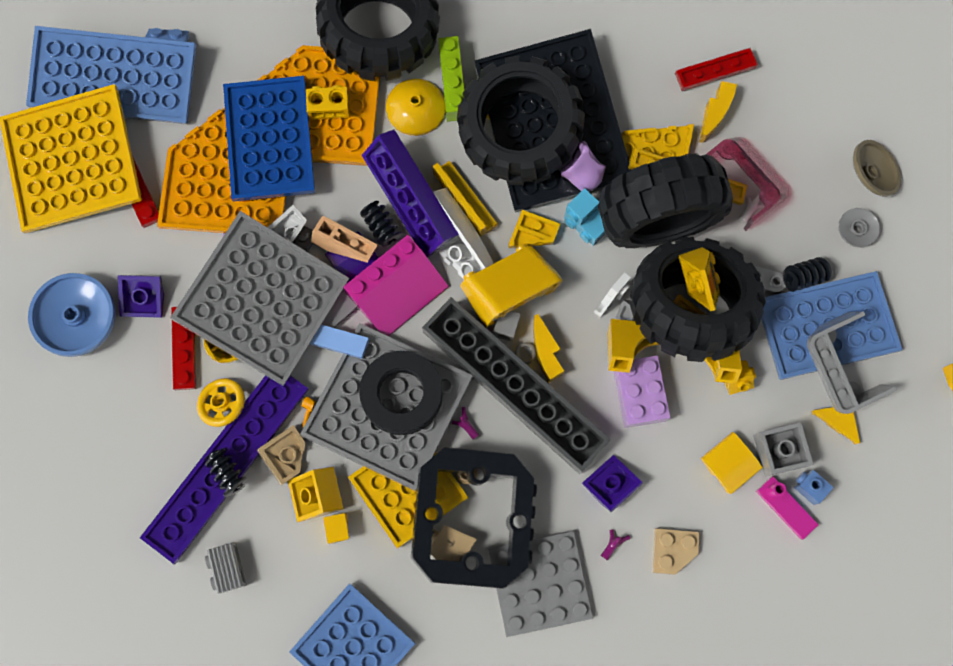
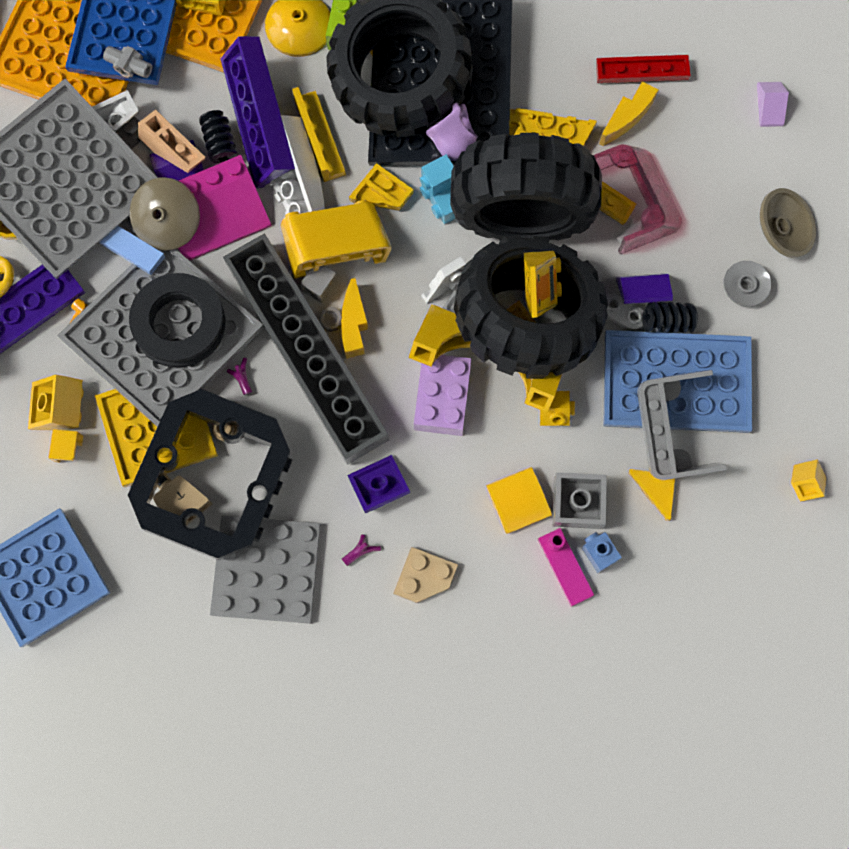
camera: 20 degrees right, 0 degrees up
(284, 454) = (35, 352): tan plate -> none
(286, 180) = (127, 62): none -> light grey axle
(368, 292) = (178, 209): none -> dark tan dish
(779, 254) = (645, 288): none -> dark purple slope
(830, 69) = (772, 103): none -> lavender slope

